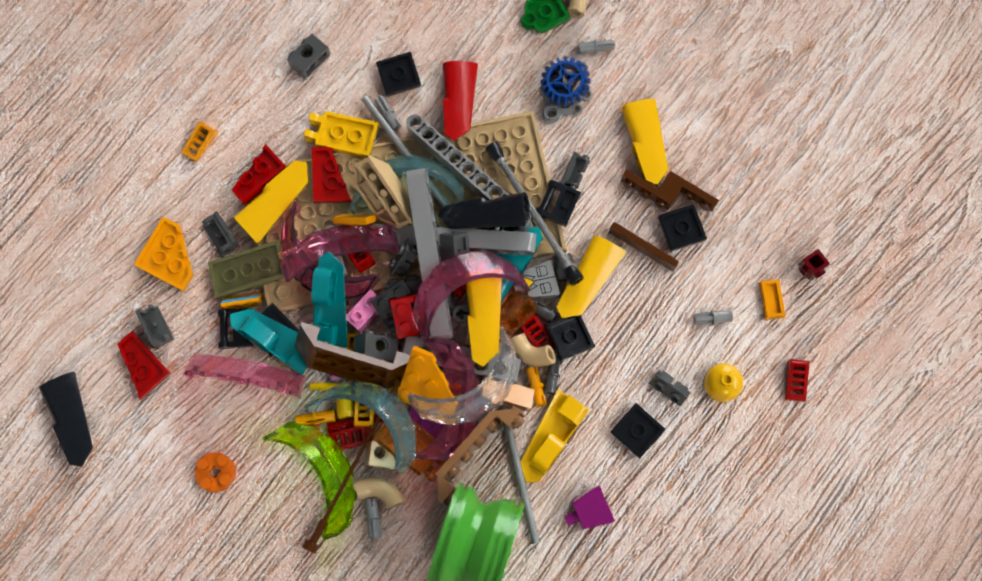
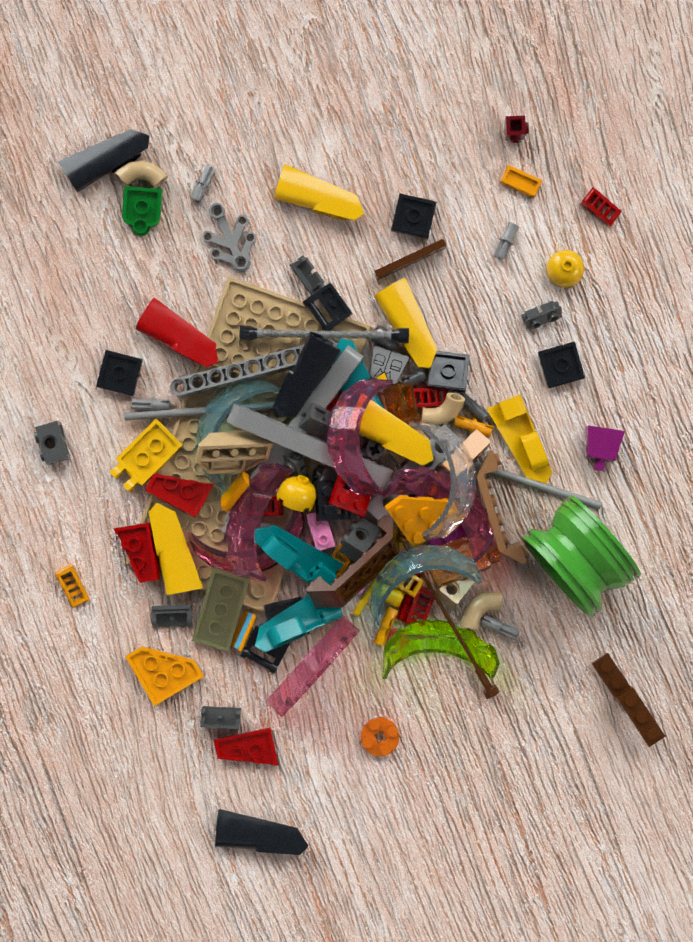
camera: 55 degrees left, 10 degrees up
(382, 268) = (297, 493): none -> yellow cylinder
(572, 79) = (238, 236): blue gear -> none
(669, 190) = (375, 206): reddish brown bracket -> none

